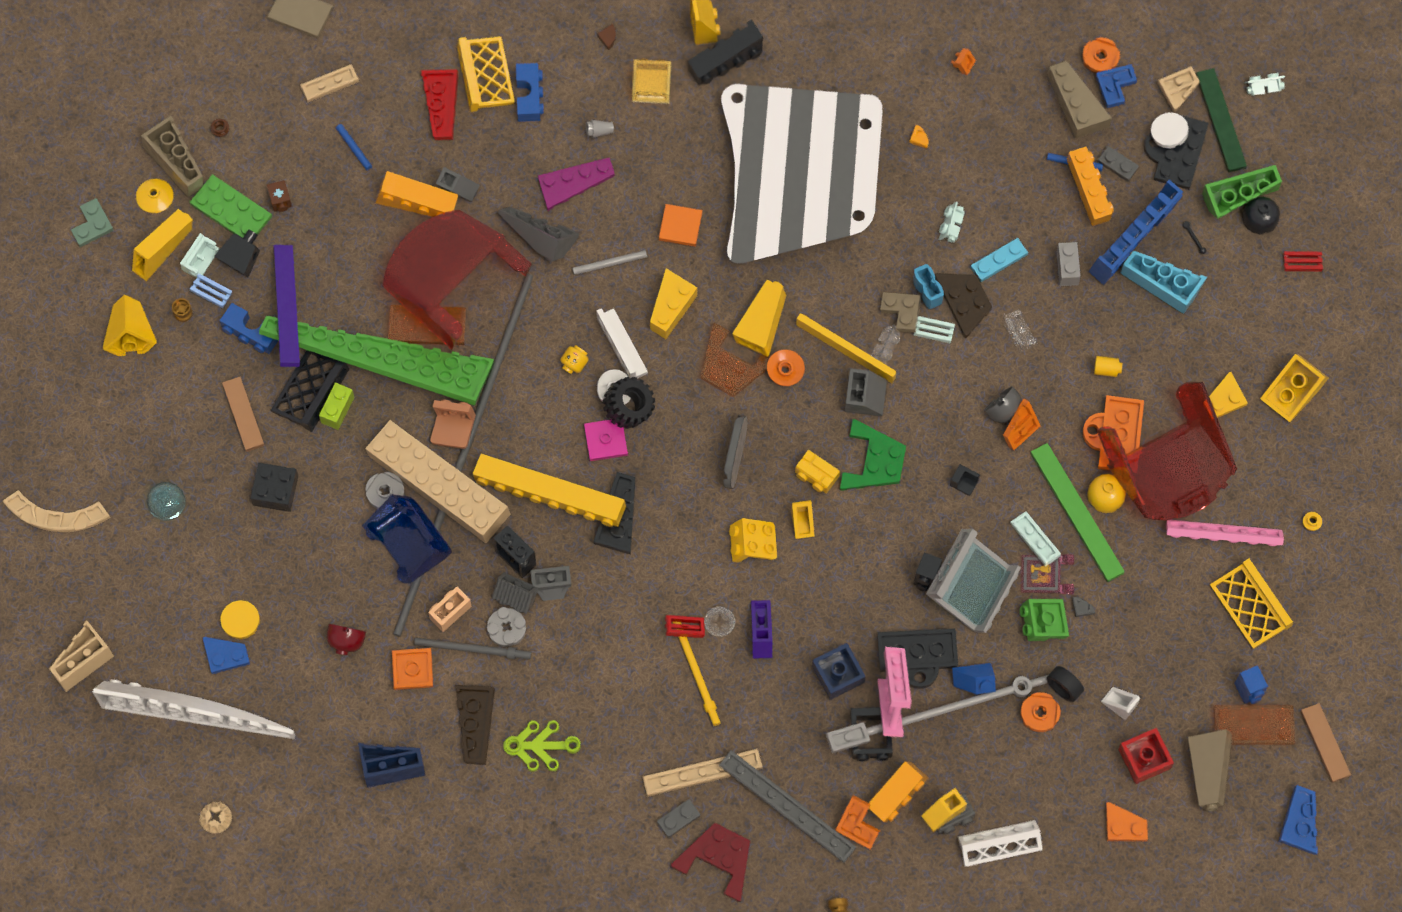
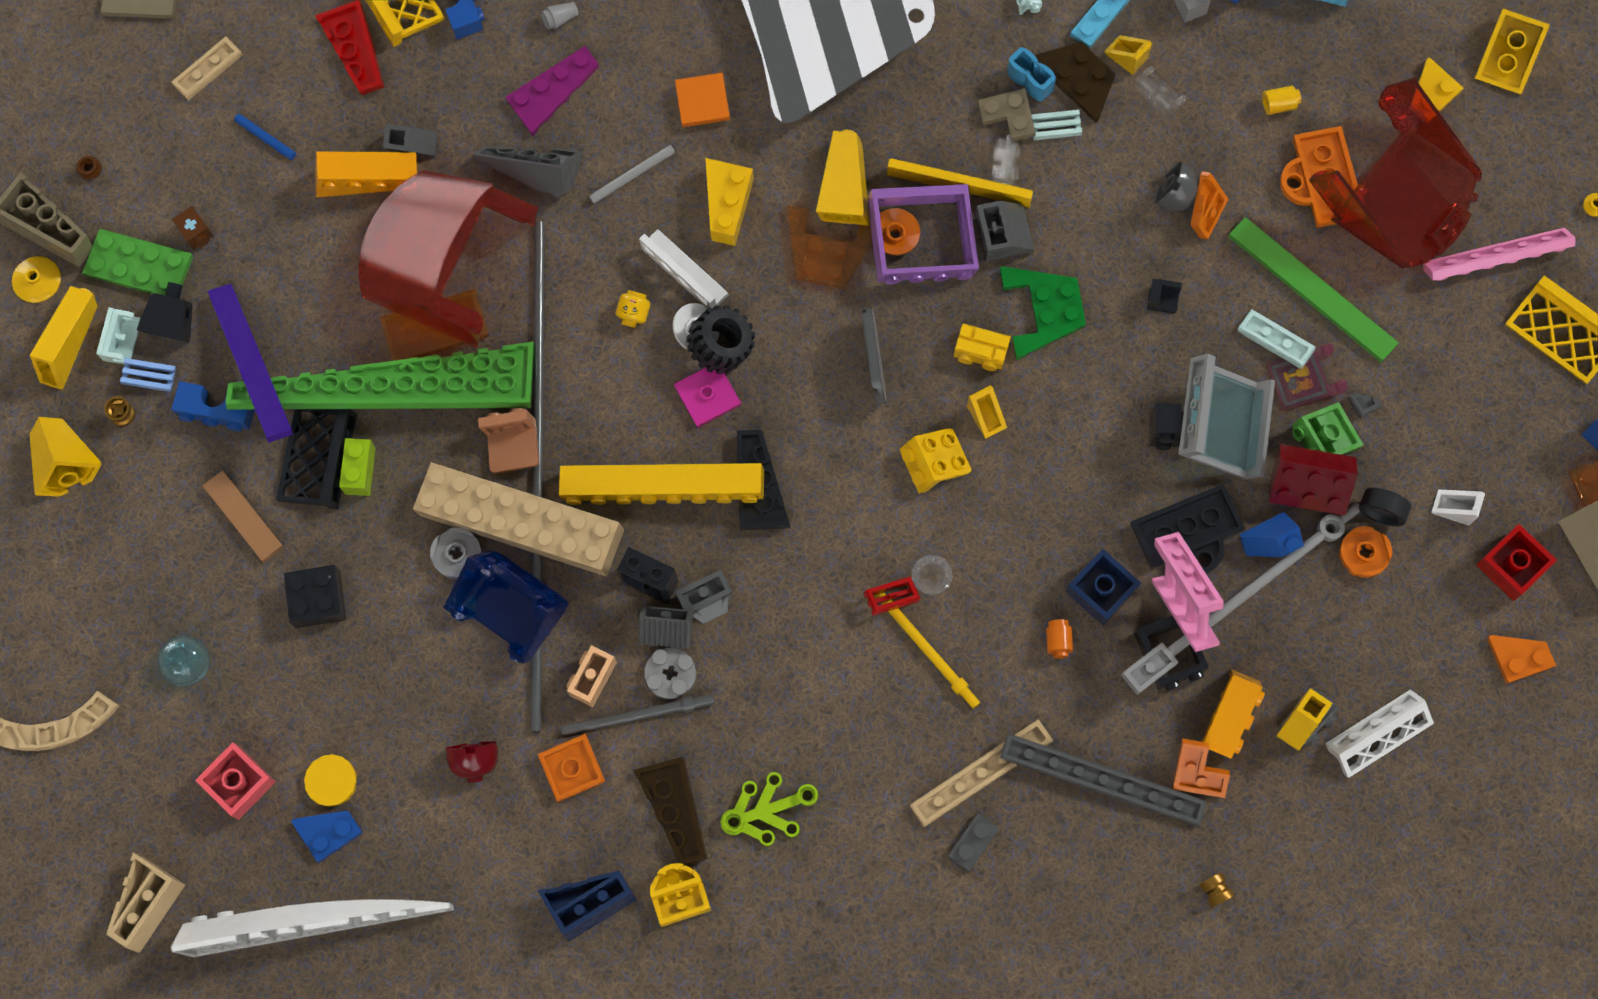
camera: 15 degrees left, 5 degrees up
(174, 596) = (235, 781): none -> coral brick
(455, 781) = (678, 894): none -> yellow slope
(722, 850) = (1044, 864): dark red wing -> none
(761, 629) = (988, 566): dark purple slope -> none
(794, 697) = (1059, 638): none -> orange brick
(810, 347) = (924, 195): none -> medium lavender window
(1008, 294) = (1129, 52): none -> yellow slope
(1019, 646) = (1313, 479): none -> dark red brick
(1106, 493) = (1339, 254): yellow cylinder -> none

